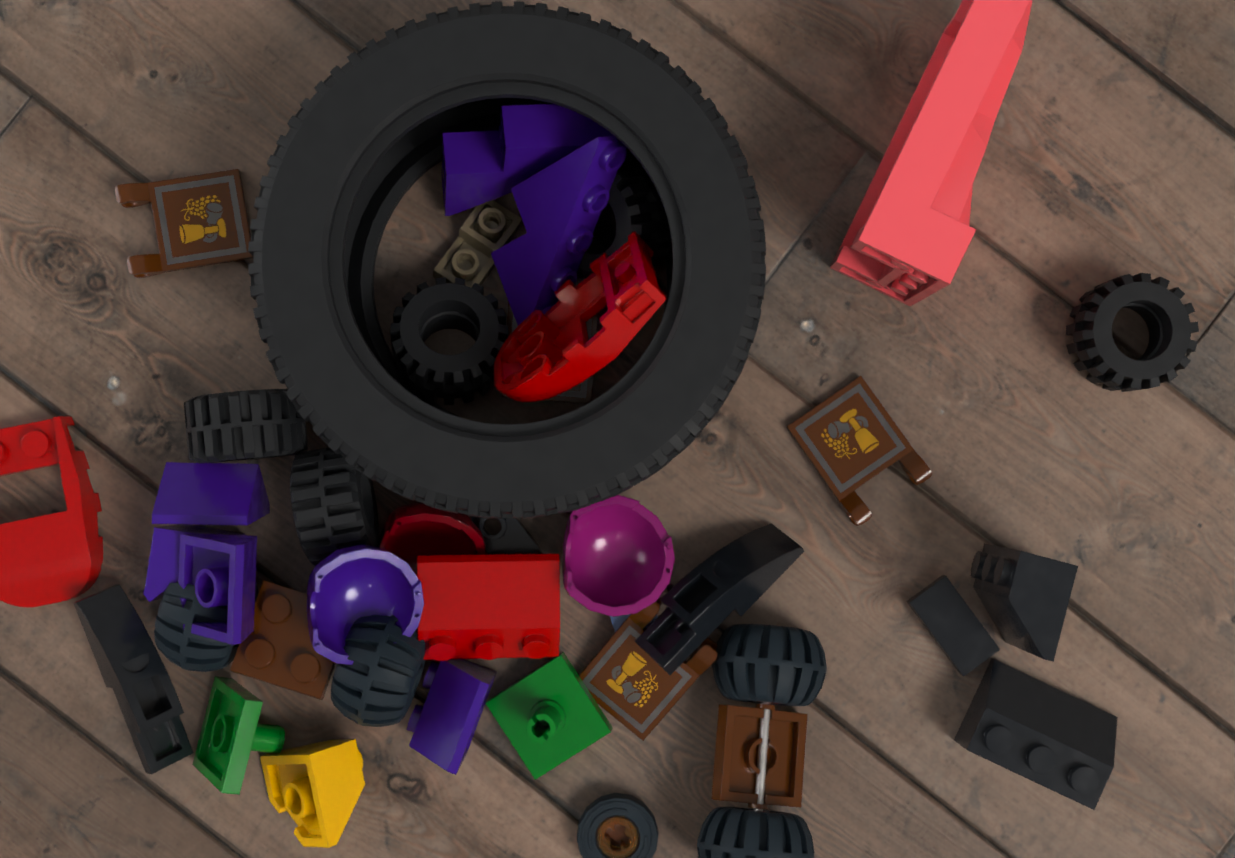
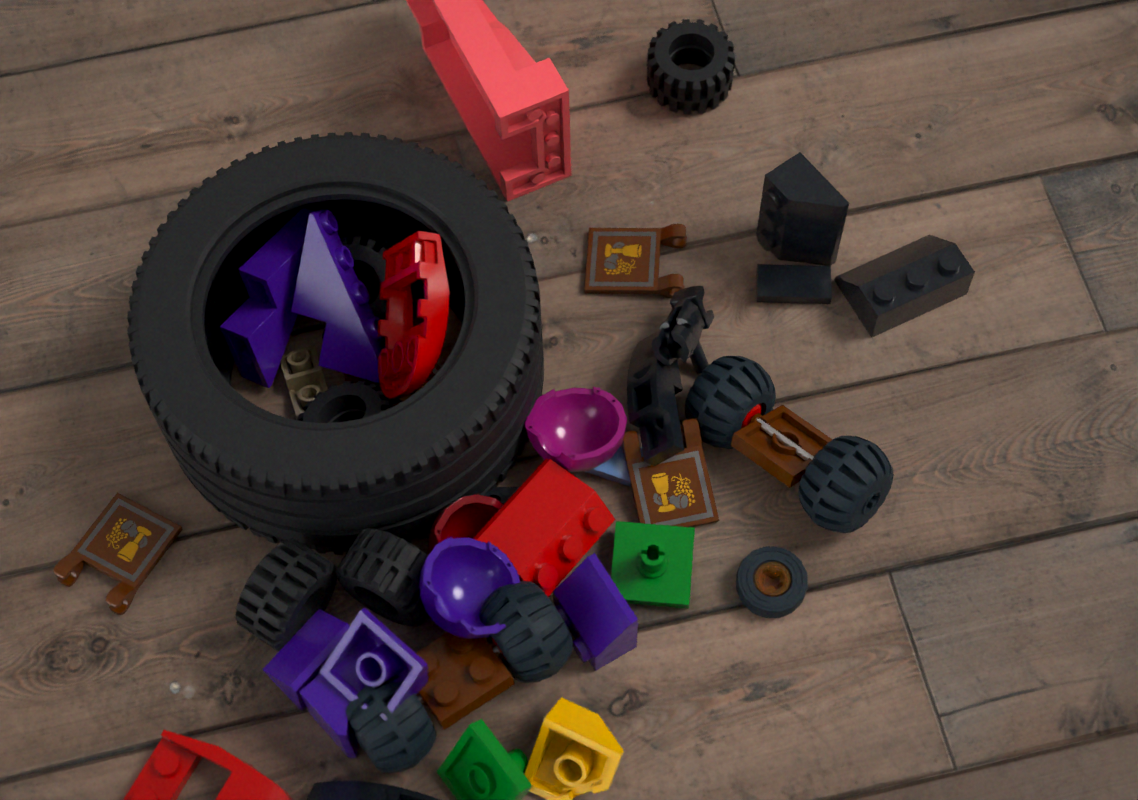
camera: 50 degrees left, 25 degrees down
(806, 570) = (682, 329): none -> black piece

